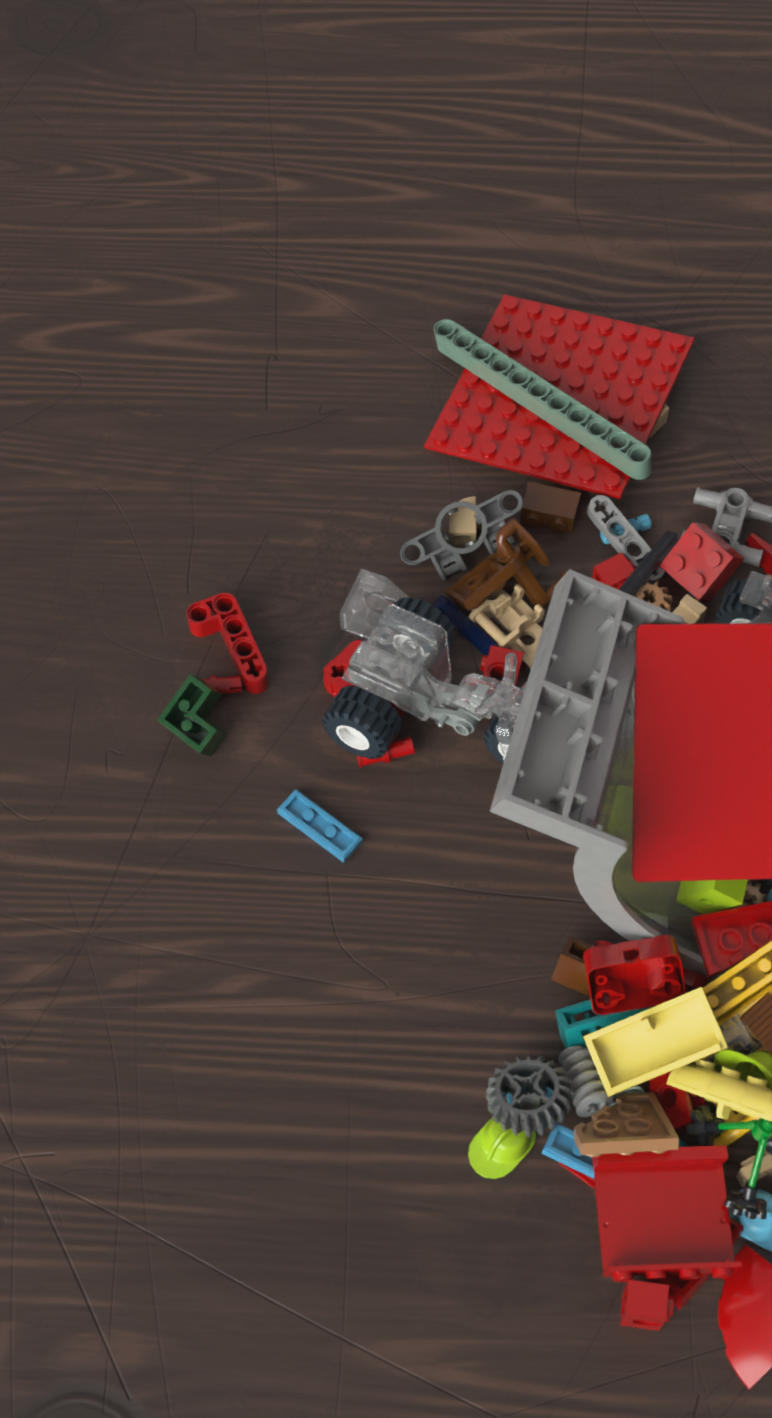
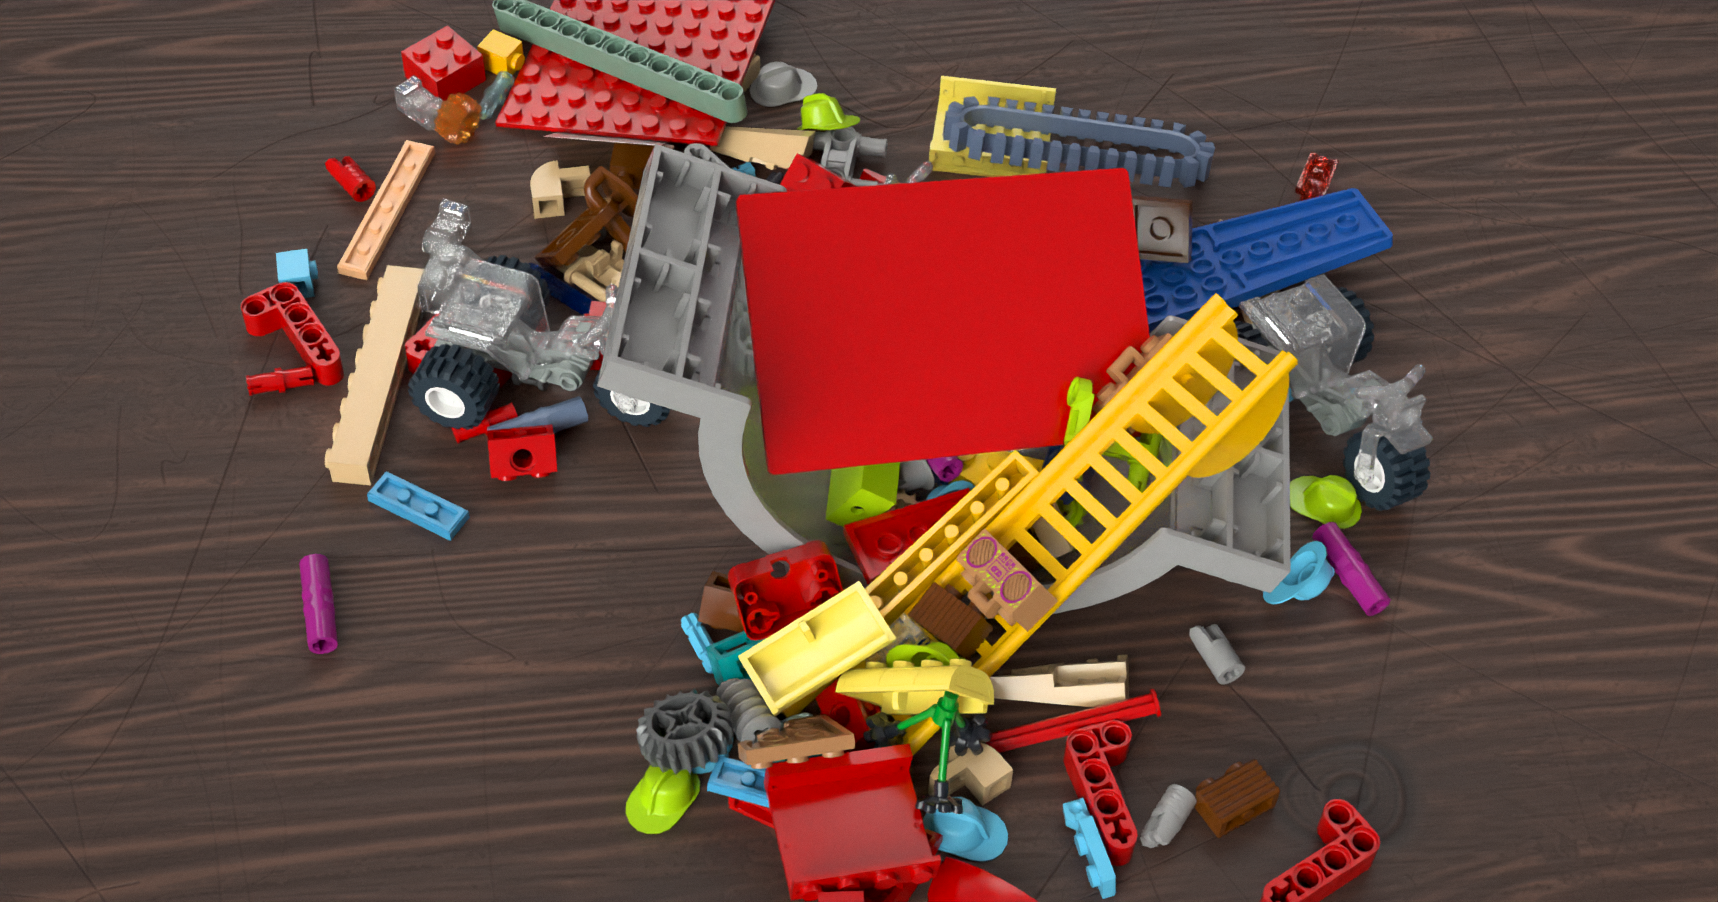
camera: 15 degrees left, 10 degrees down
(188, 712) = (254, 403): dark green brick -> none
(225, 912) = (318, 604): none -> magenta axle
(237, 580) = (297, 269): none -> medium azure brick
(293, 489) = (351, 178): none -> red hinge
(296, 694) = (376, 379): none -> tan brick
(320, 524) = (386, 210): none -> light nougat tile
(360, 421) = (417, 102): none -> clear leg
(371, 551) = (449, 226): none -> clear leg
(384, 384) = (444, 63): none -> red brick
(391, 441) = (458, 118): none -> clear orange gear
(403, 779) = (536, 439): none -> red brick
(426, 418) = (495, 94): none -> clear light blue axle
(431, 760) = (560, 415): none -> sand blue axle
(434, 542) = (534, 223): dark grey piece -> none
(436, 377) = (501, 53): none -> yellow brick
(518, 480) = (604, 138): none -> white sticker
(550, 994) = (698, 638): none -> medium azure axle
(666, 501) = (765, 146): none -> tan wedge
(686, 435) = (781, 84): none -> light grey piece
(722, 476) = (824, 113): none -> lime piece

